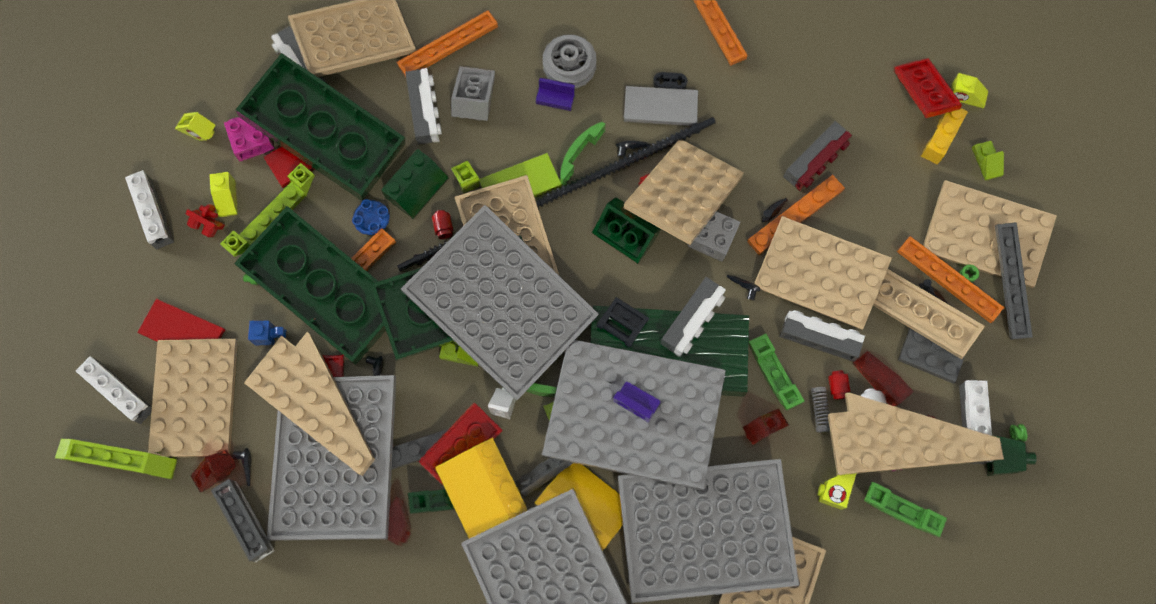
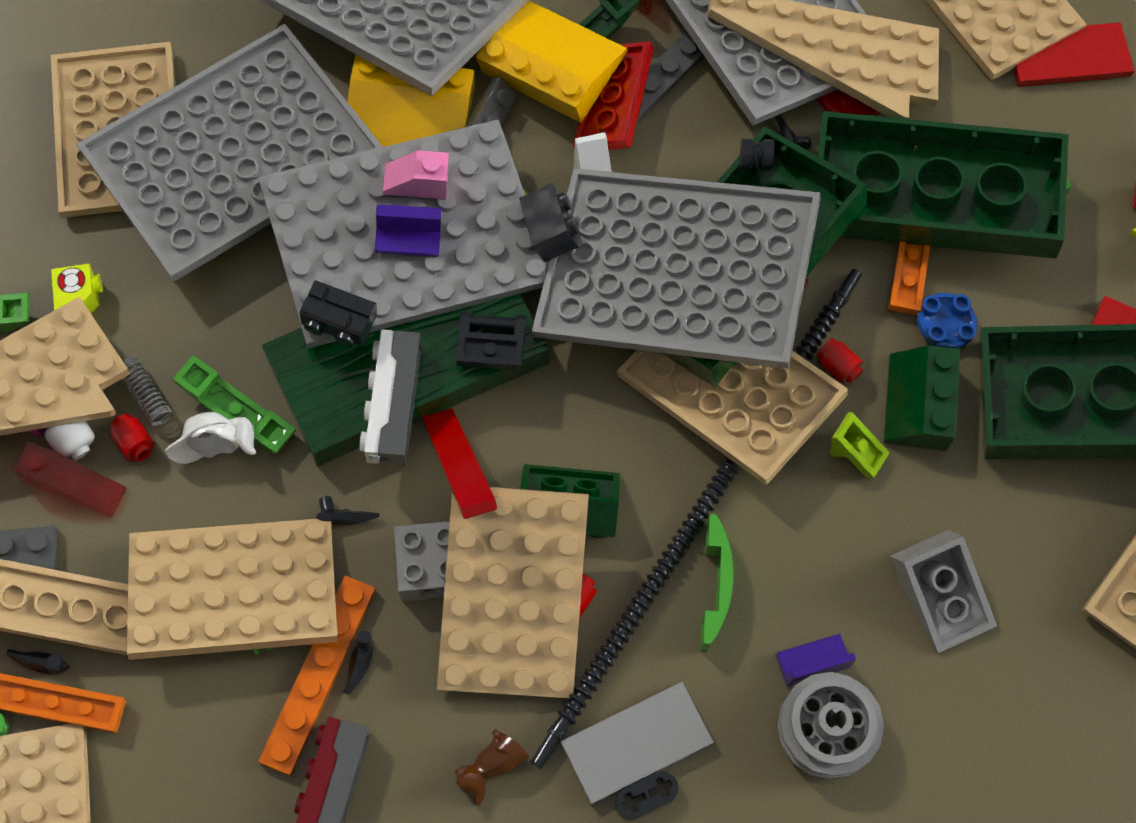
camera: 145 degrees right, 5 degrees down
(264, 332) = (963, 97): blue brick -> none
(291, 196) = (1083, 243): lime slope -> none
(415, 339) = (749, 154): none -> black wheel
(422, 106) = (1001, 523): piece -> none
(448, 43) = (1042, 653): orange plate -> none
(539, 172) = (761, 512): lime tile -> none
(553, 368) = (549, 222): none -> black brick
(613, 432) = (417, 175): none -> bright pink slope
(629, 145) = (650, 641): black bar -> none
(680, 256) = (459, 464): none -> red tile
(702, 368) = (338, 314): none -> black brick
(731, 128) = (495, 760): none -> reddish brown animal
(765, 426) = (214, 326): clear red slope -> none
(792, 359) = (210, 435): none -> white hair
(822, 336) = (188, 495): dark grey piece -> none

